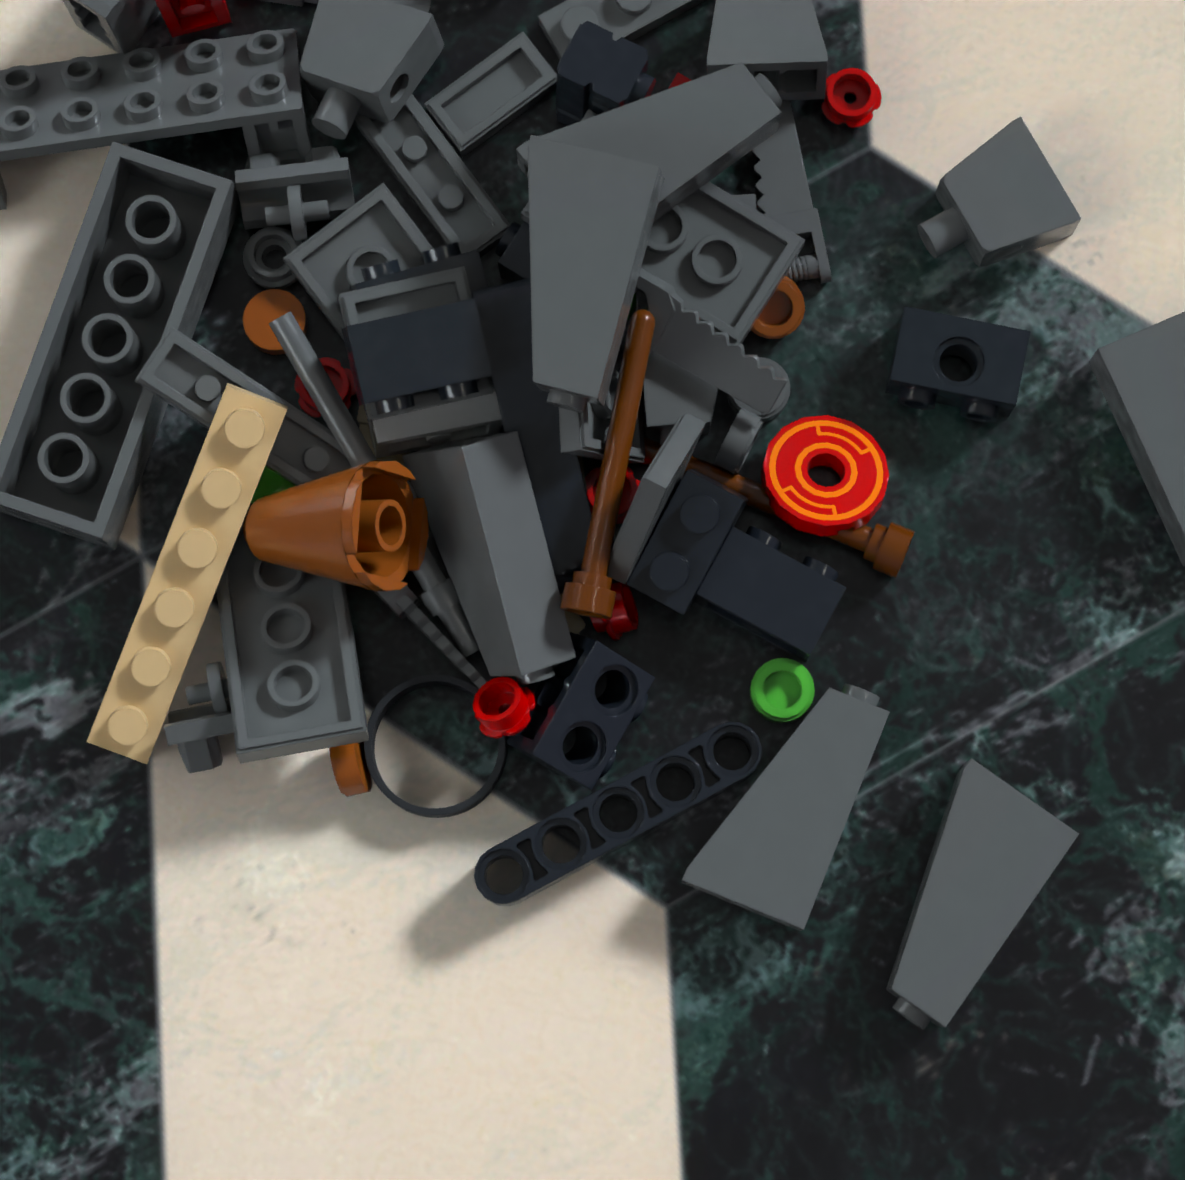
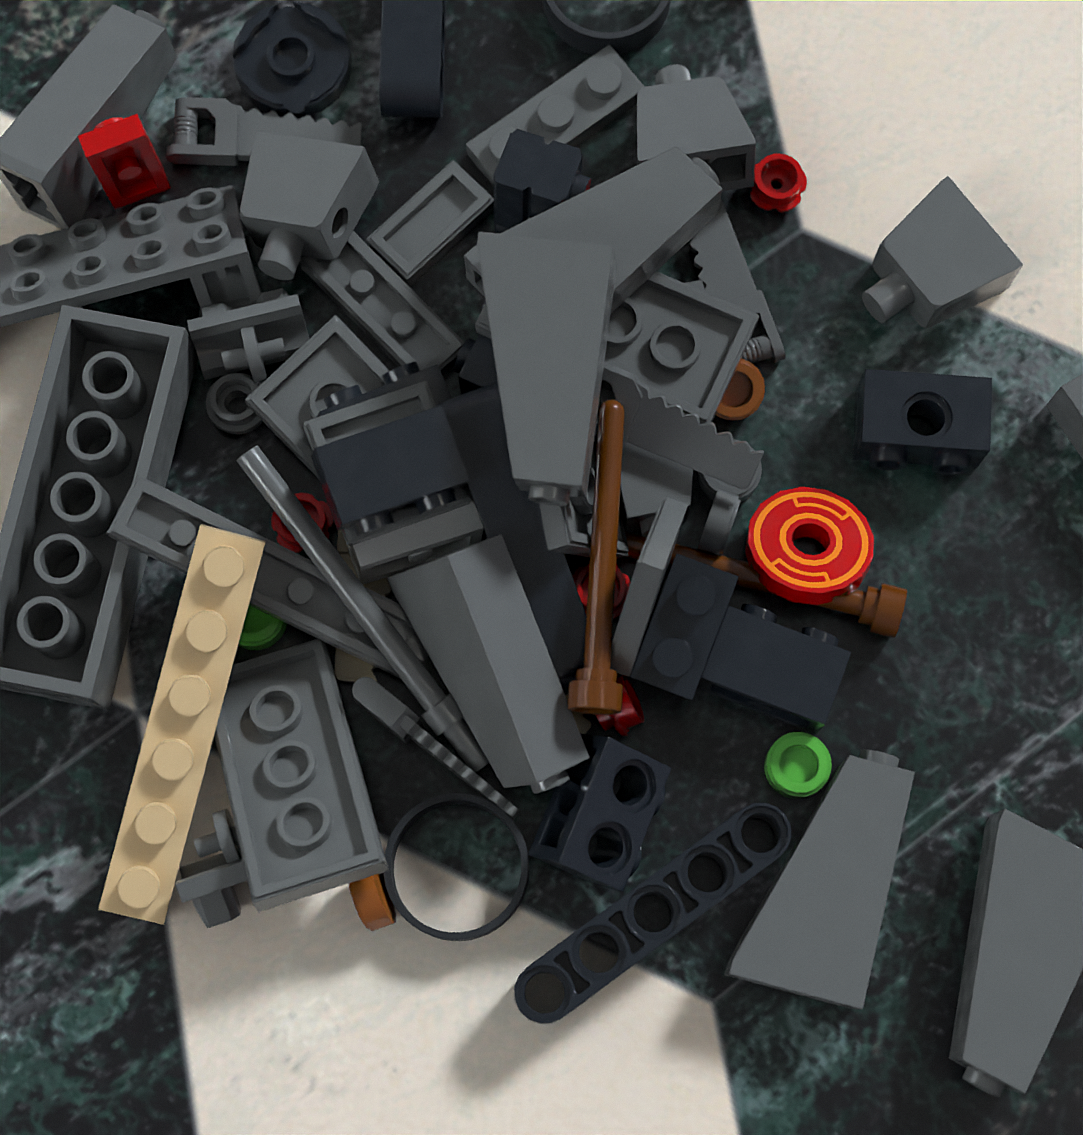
camera: 10 degrees left, 5 degrees down
(266, 308) = (228, 470): dark orange tile -> none
(344, 526) = (337, 654): dark orange cone -> none
(503, 707) = (512, 811): red plate -> none

